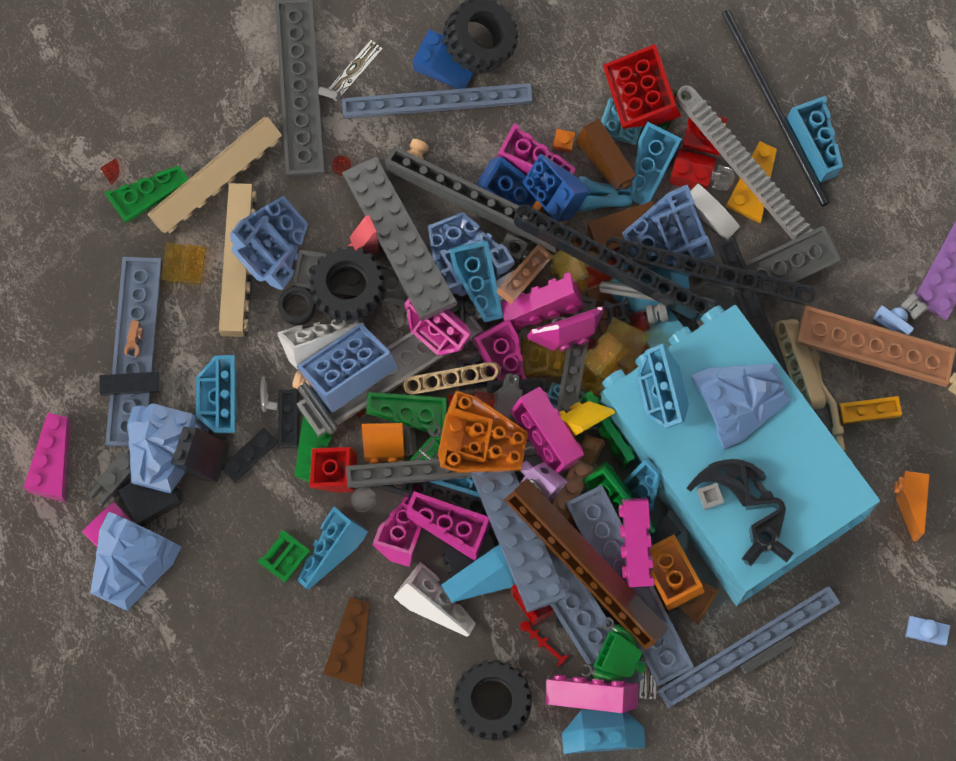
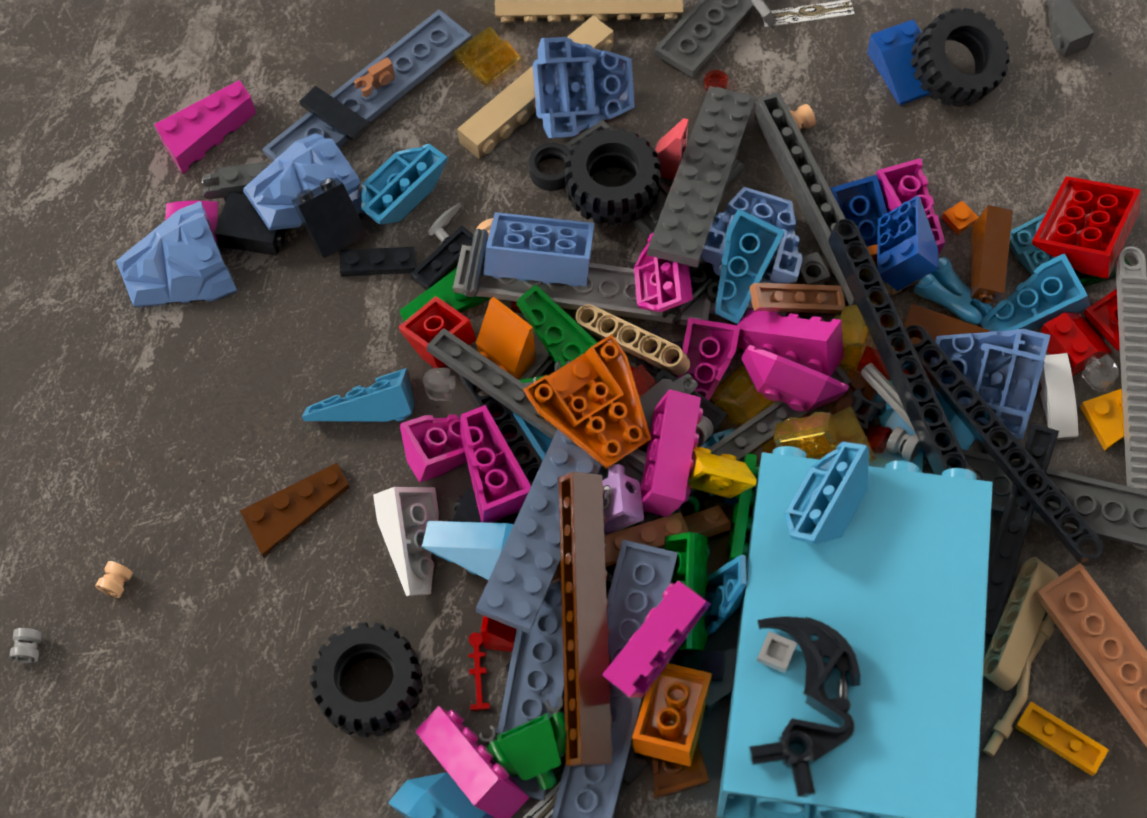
camera: 45 degrees right, 10 degrees down
(289, 559) = (315, 381): green plate -> none
(303, 343) = (524, 199): white wedge -> none
(437, 101) = (865, 92): sand blue plate -> none
(740, 398) = (907, 581): medium blue wedge -> none

